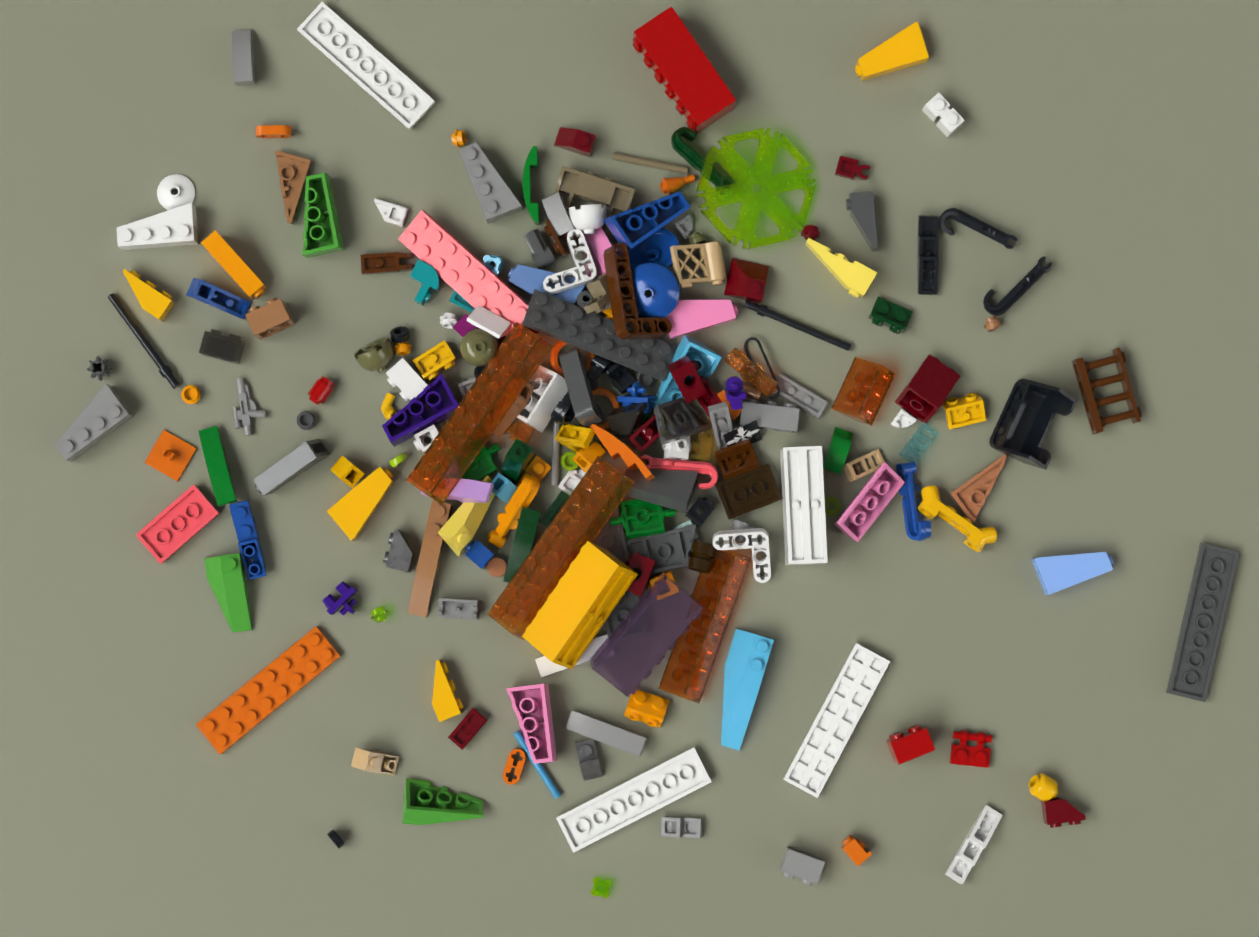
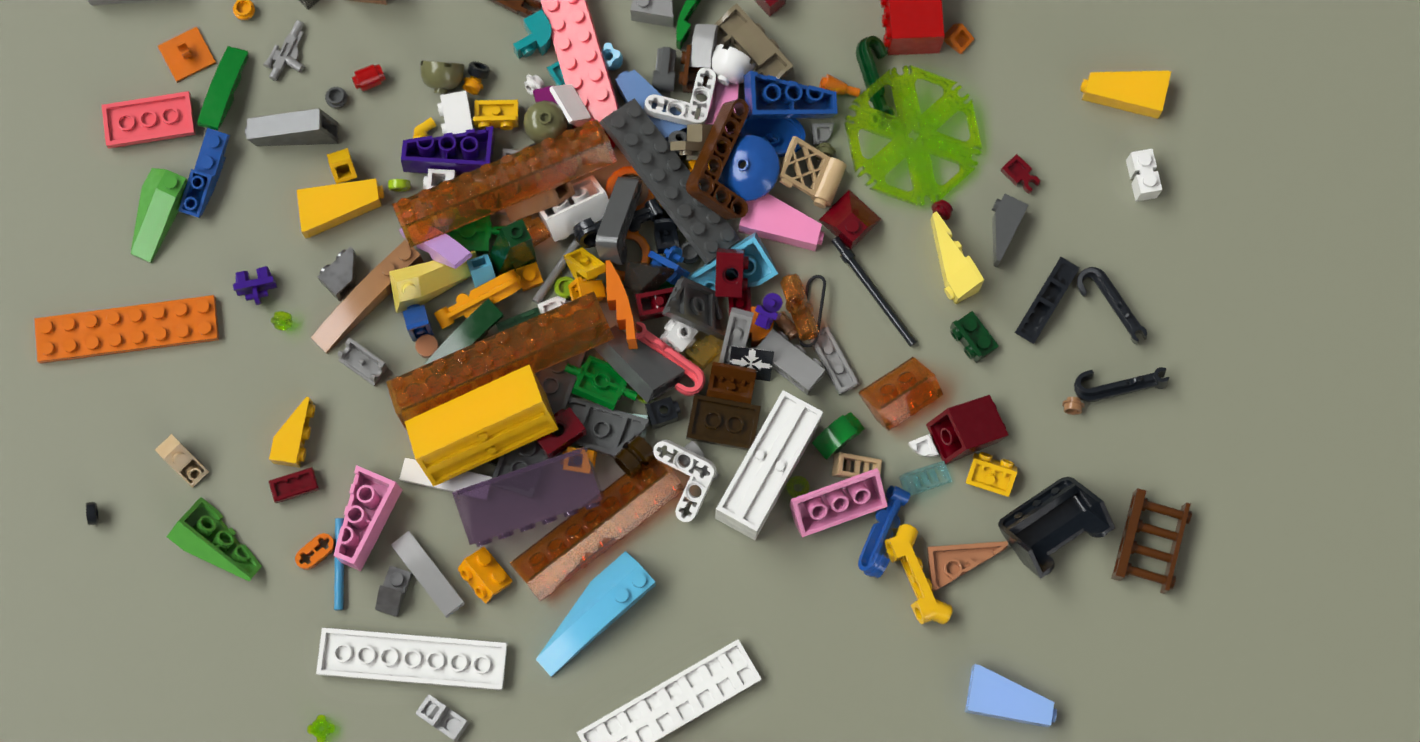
camera: 30 degrees right, 10 degrees down
(650, 163) = (820, 51): dark tan bar -> none
(741, 88) = (958, 37): none -> orange slope

